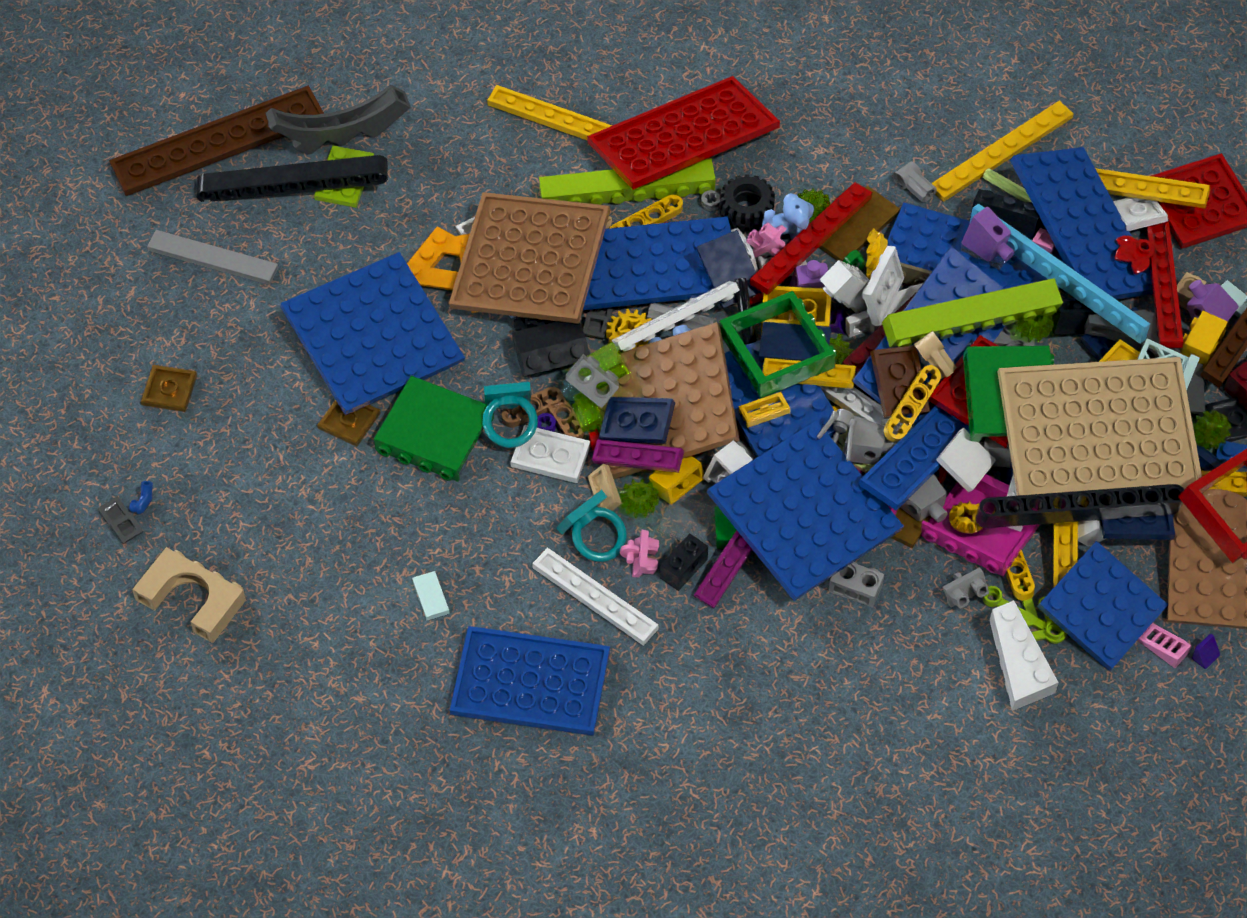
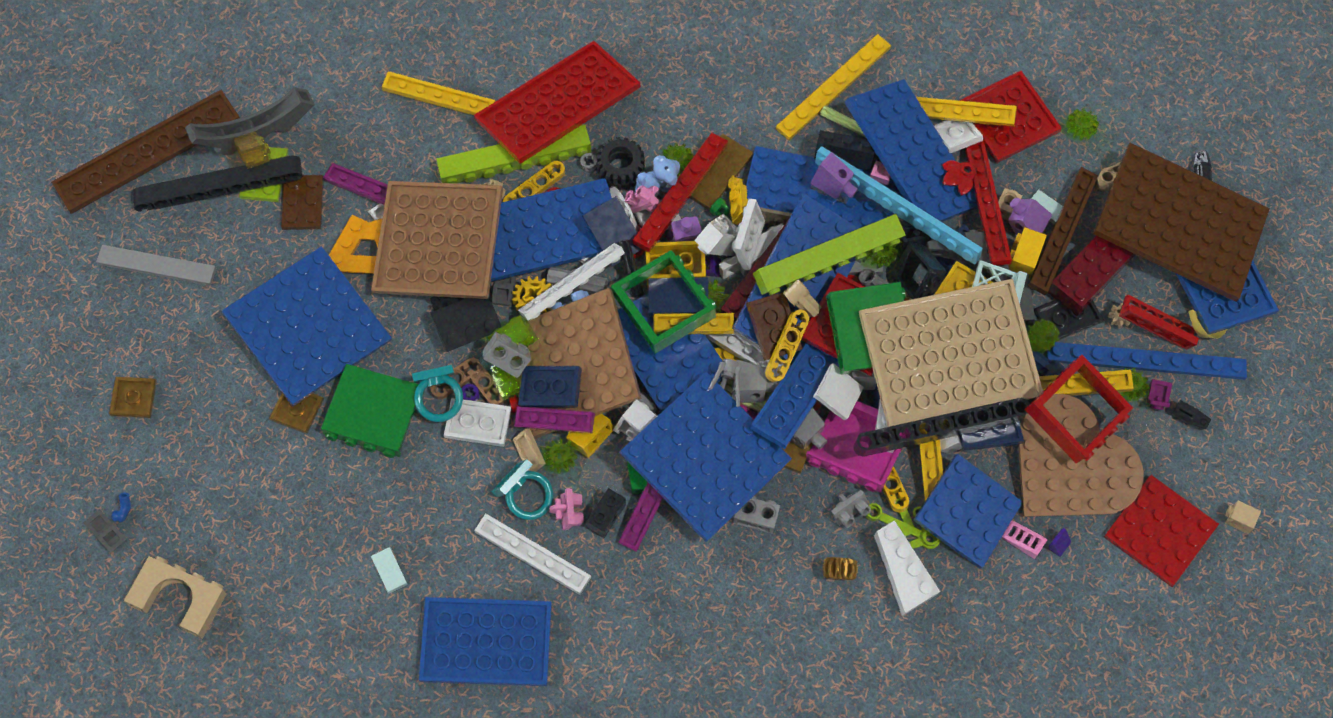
camera: 10 degrees left, 10 degrees up
(335, 145) = (252, 149): none -> clear yellow brick
(383, 210) = (303, 203): none -> reddish brown plate
(445, 195) = (356, 183): none -> magenta tile
(765, 412) = (656, 368): yellow tile -> none
(911, 178) = (759, 123): light grey piece -> none
(945, 648) = (840, 568): none -> pearl gold gear
(962, 523) = (842, 448): yellow gear -> none
(1073, 328) = (904, 272): none -> black window

